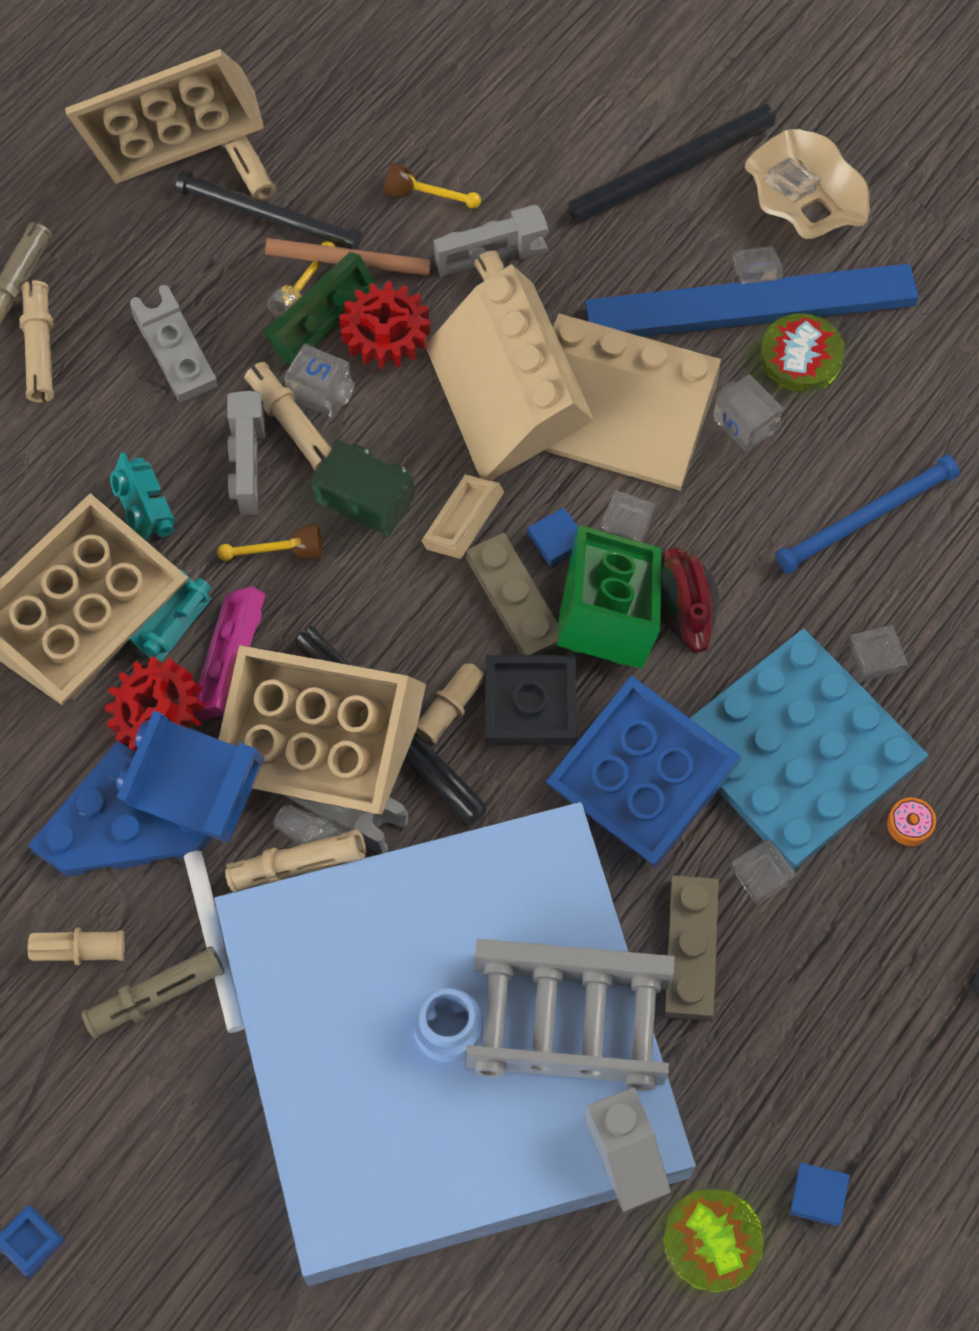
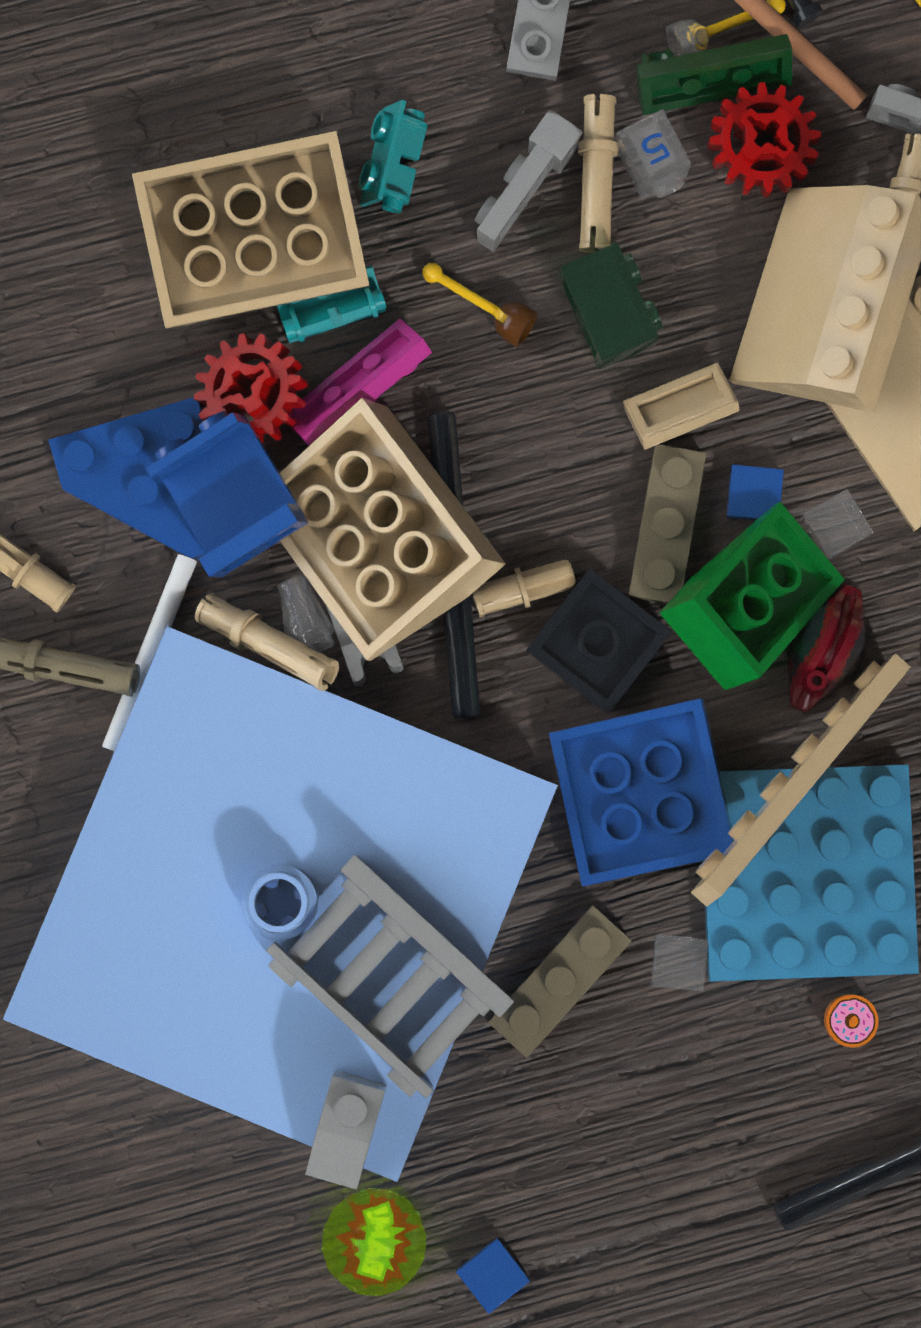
camera: 35 degrees right, 20 degrees up
(740, 688) = (785, 792): none -> tan plate

